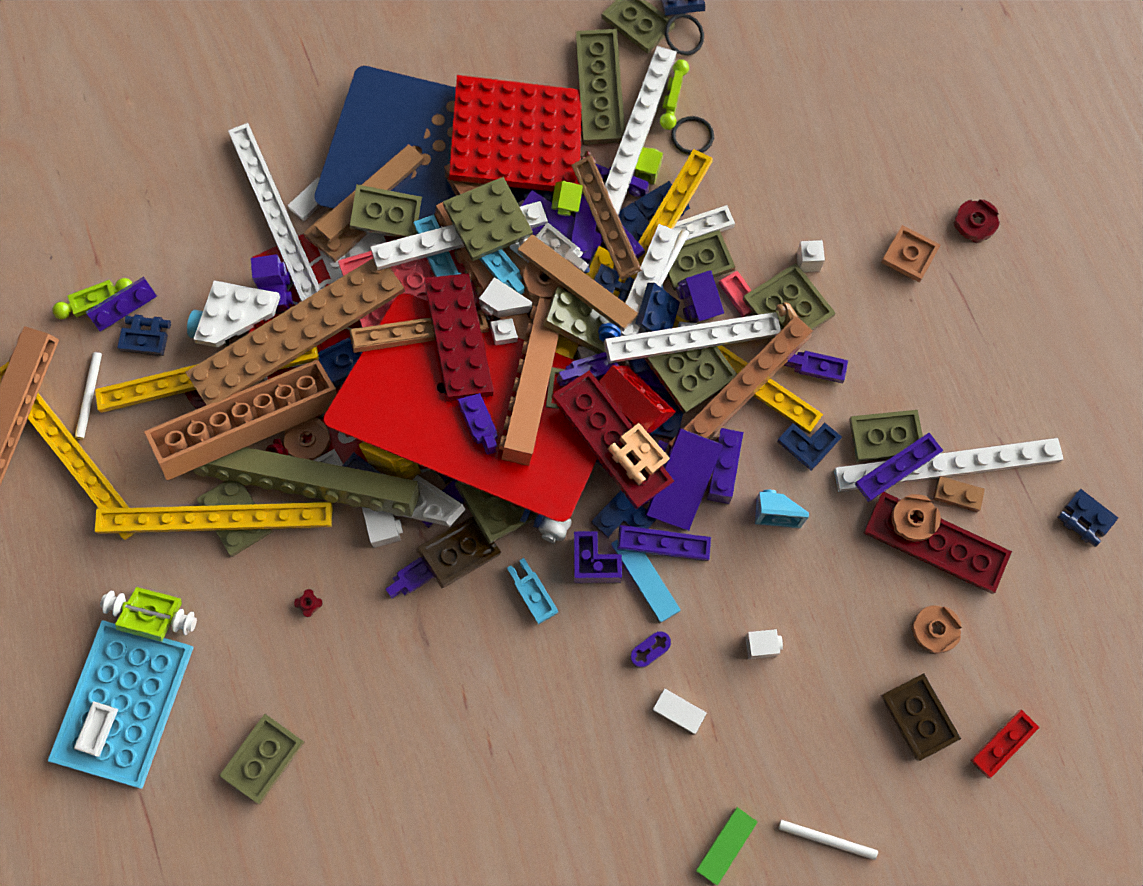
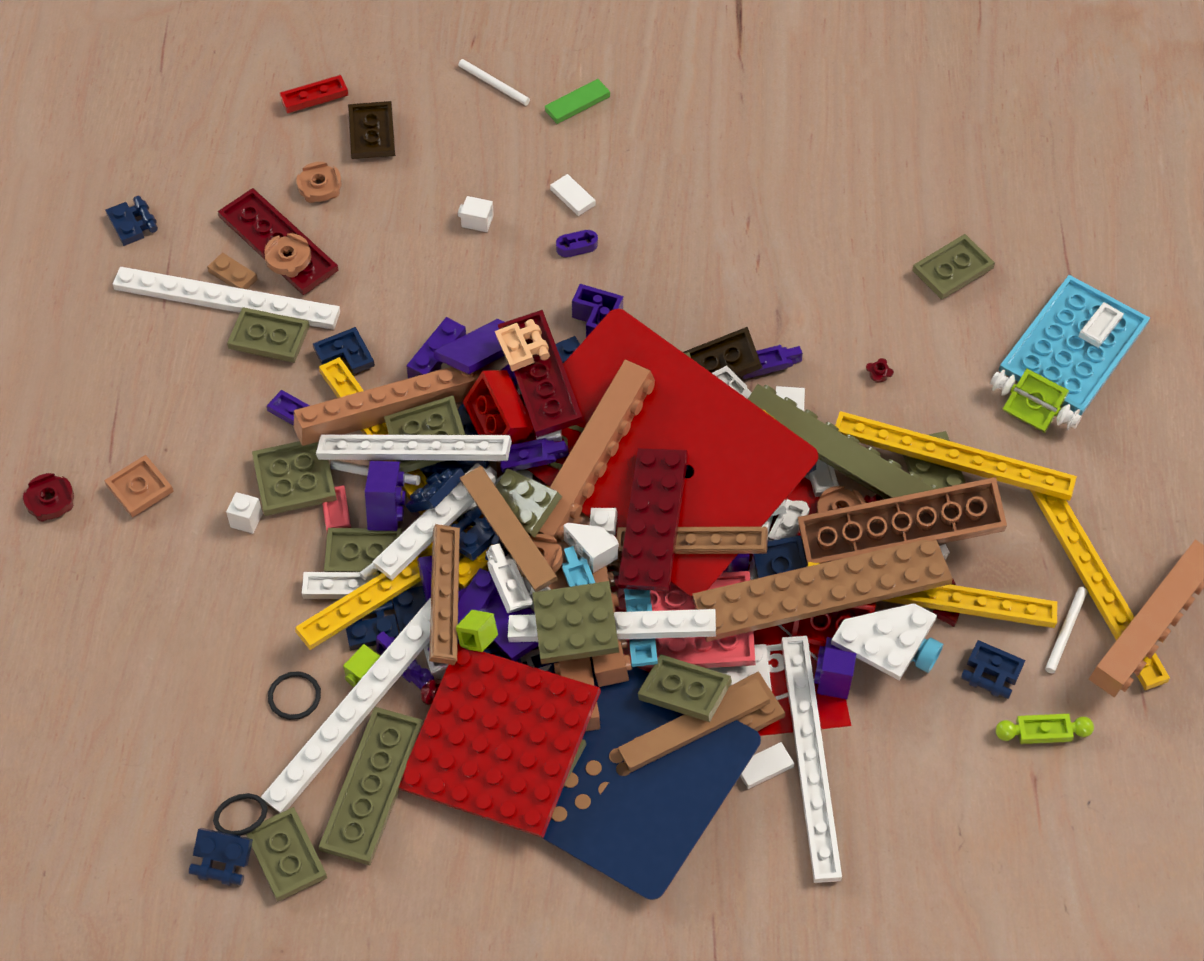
camera: 160 degrees left, 15 degrees down
(121, 304) = (1012, 708): dark purple plate -> none
(479, 422) = (663, 419): dark purple hinge -> none
(533, 593) = (664, 313): medium azure hinge -> none
(608, 330) = (497, 471): blue plate -> none
(649, 583) = (555, 297): medium azure tile -> none
(664, 543) = (512, 308): dark purple tile -> none
(668, 119) = (287, 747): lime plate -> none
(778, 510) = (409, 298): medium azure slope -> none
(787, 310) = (305, 449): medium nougat arm -> none
(898, 467) = (277, 296): dark purple plate -> none

